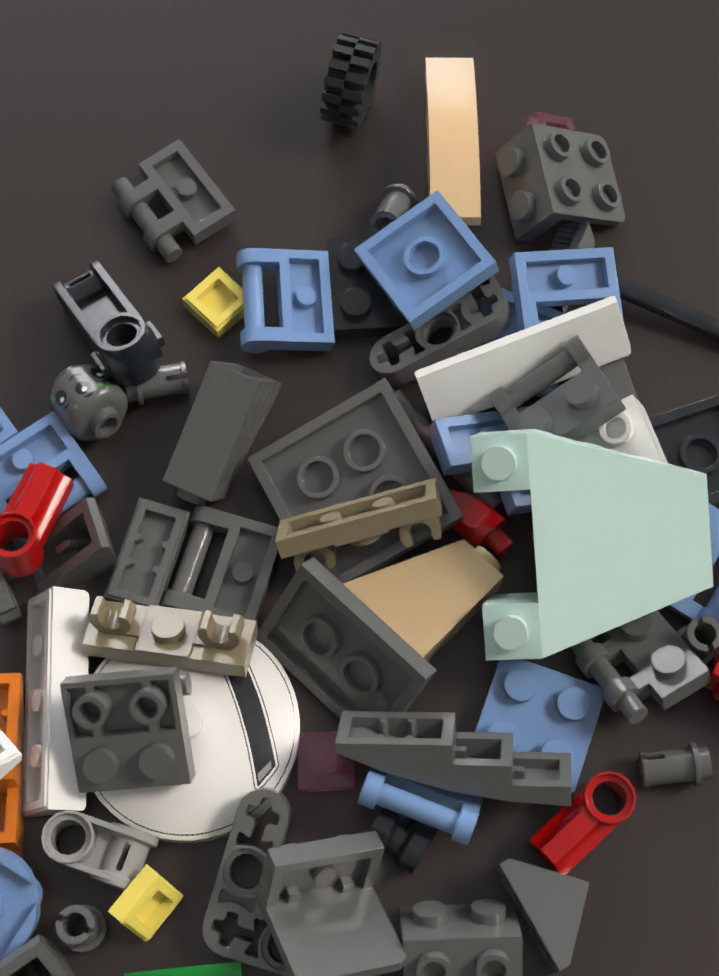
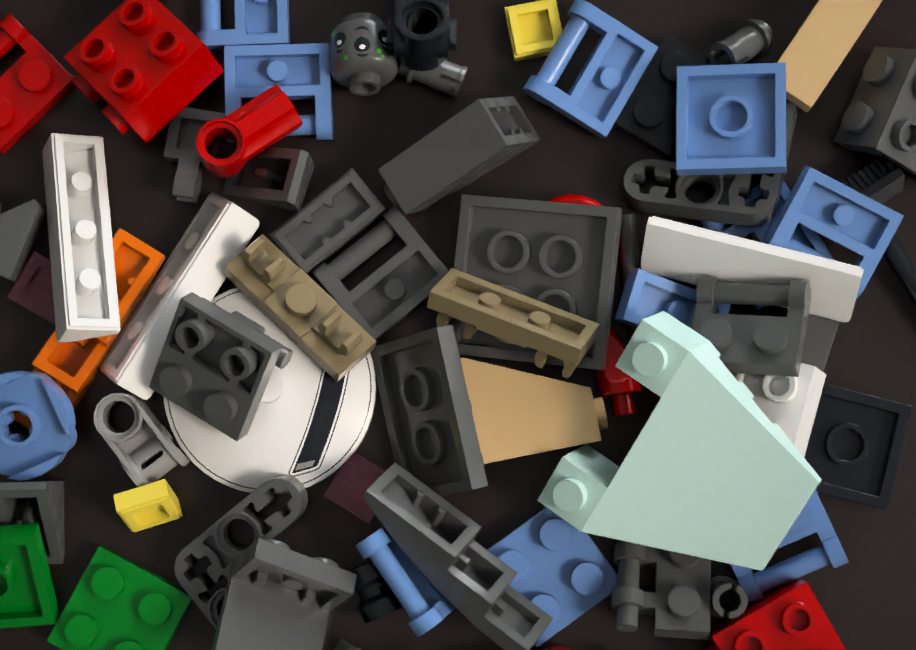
camera: 35 degrees right, 15 degrees up
(86, 941) = (100, 490): dark grey pin -> none

